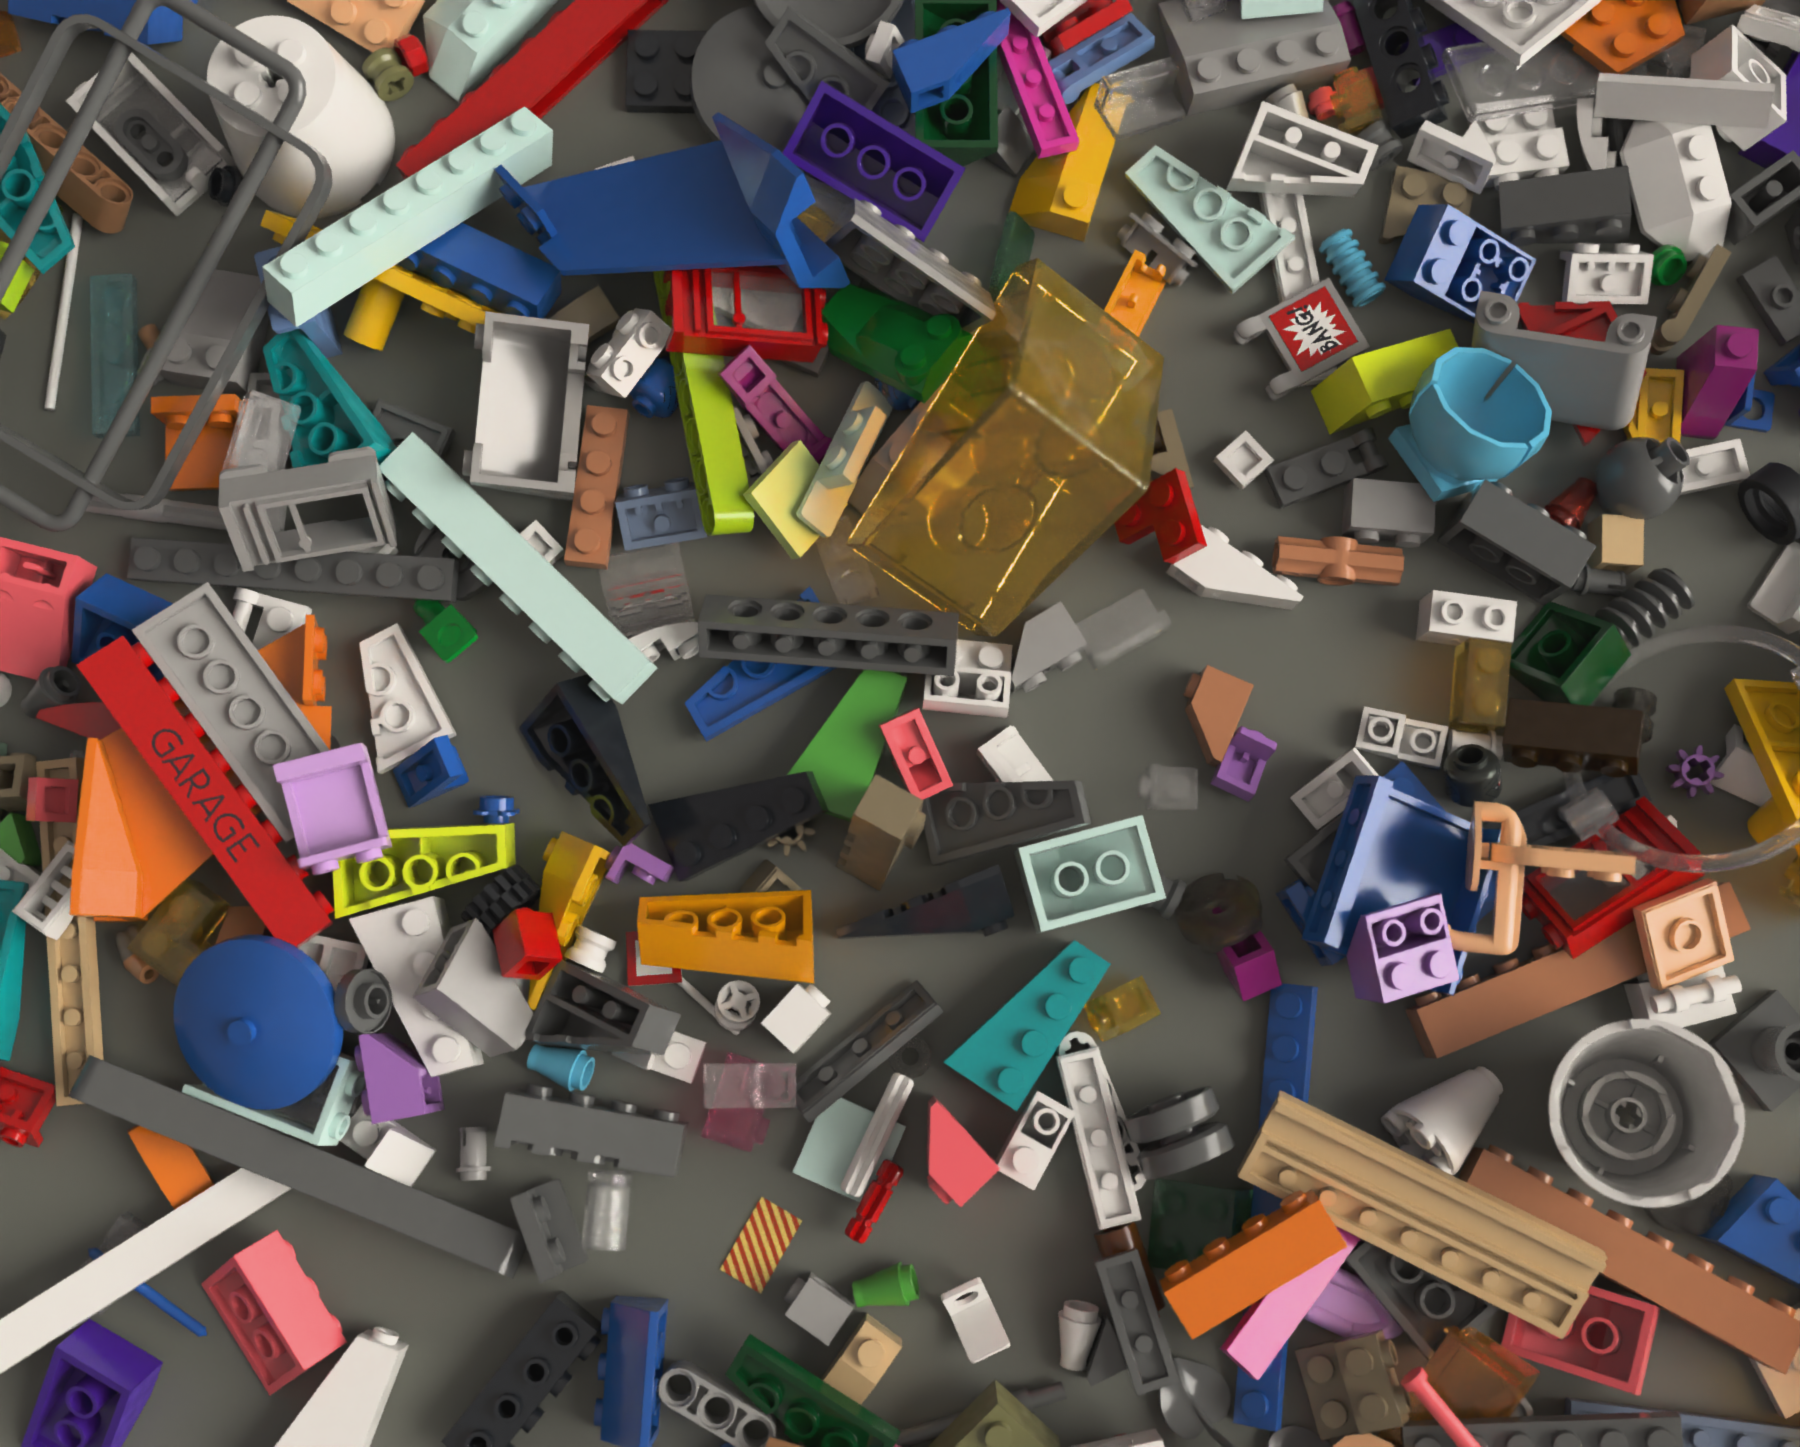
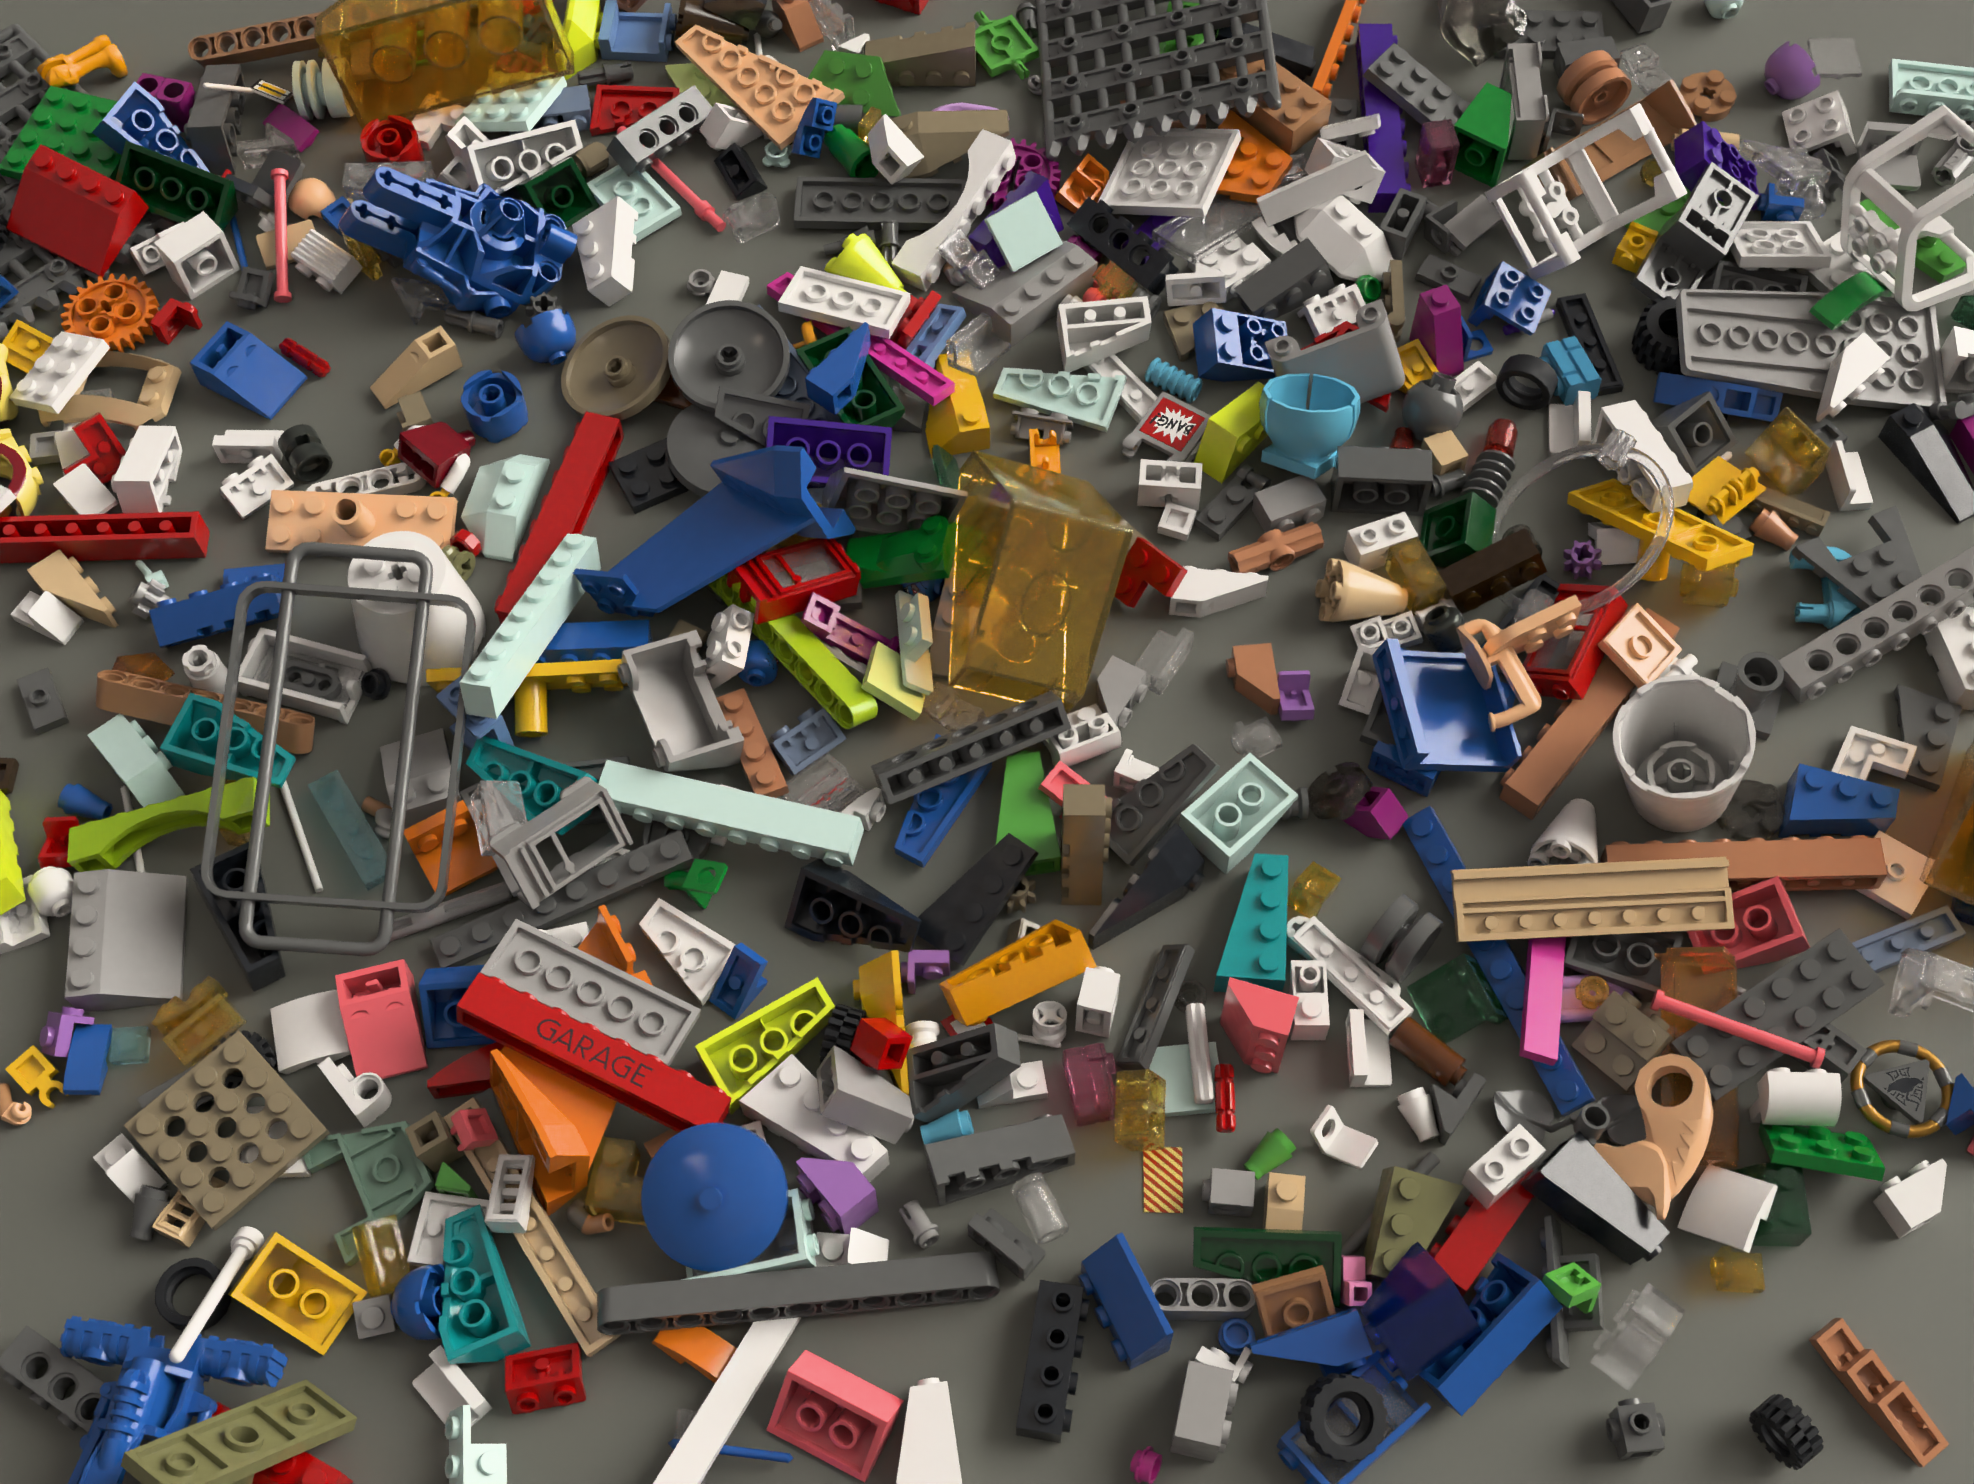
camera: 25 degrees left, 20 degrees down
(21, 63) = (205, 669): none -> white plant
(52, 688) = (426, 1064): dark grey cone -> none
(334, 808) = (689, 1020): lavender panel -> none
(363, 1001) = (785, 1139): dark grey plate -> none
(496, 808) = (798, 979): blue plate -> none
(749, 1085) = (1092, 1060): clear slope -> none
(772, 1166) = (1140, 1110): none -> clear yellow brick
(880, 47) = (793, 386): white plate -> none
(1064, 1231) = (1367, 1052): none -> white panel
(1136, 1321) = (1452, 1069): dark grey plate -> none
(1251, 1262) = (1503, 985): orange brick -> none
(1261, 410) = (1169, 482): none -> white brick
(1357, 1324) = (1592, 983): none -> clear yellow plate
(1395, 674) = (1357, 593): none -> tan cone
(1402, 951) = (1469, 737): medium lavender slope -> none
(1699, 559) = (1501, 436): none -> clear red brick

